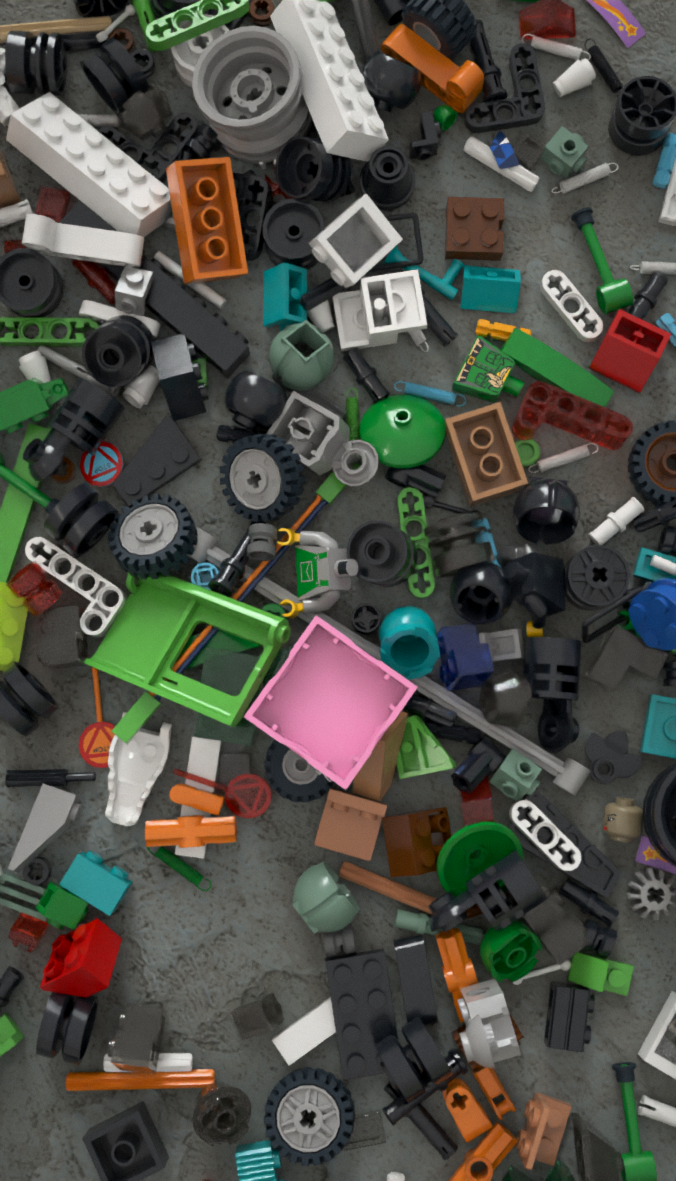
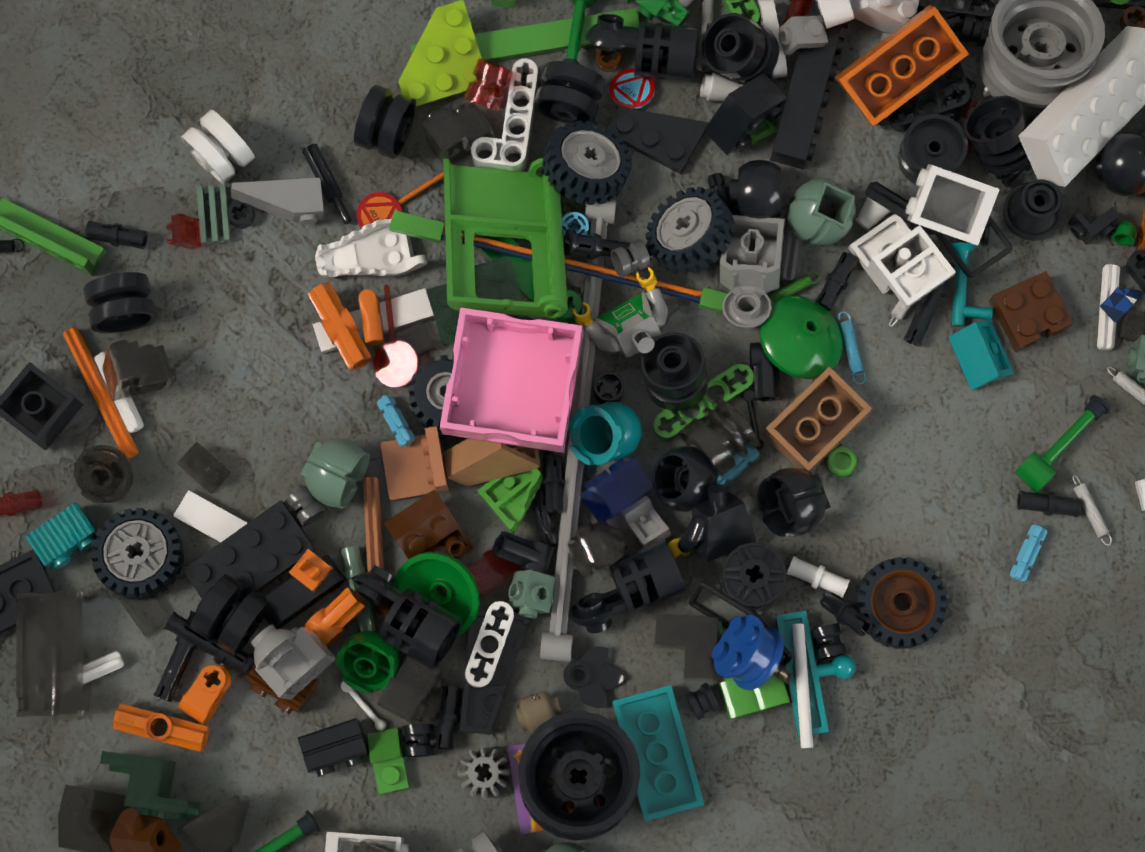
camera: 65 degrees right, 5 degrees down
(61, 907) = (220, 249): green brick -> none
(82, 960) = (182, 287): red slope -> none
(96, 882) = (255, 268): teal brick -> none
(180, 866) = (304, 335): green piece -> none
(200, 288) = (841, 95): white bar -> none
(281, 295) = (876, 164): teal brick -> none
(301, 821) = (396, 421): none -> medium azure axle
(404, 964) = (310, 570): none -> orange tile
(486, 373) = (896, 388): green torso -> none
(492, 1087) = (238, 707): orange bar -> none
(497, 330) = (945, 386): light orange axle -> none
(542, 1130) = (221, 772): nougat bracket -> none
(554, 368) = (933, 452): green slope -> none
(563, 458) = (854, 500): white piece -> none
(574, 420) = (891, 487): clear red beam -> none
(590, 316) = (1006, 415): white beam -> none
(629, 351) = (988, 509): red slope -> none

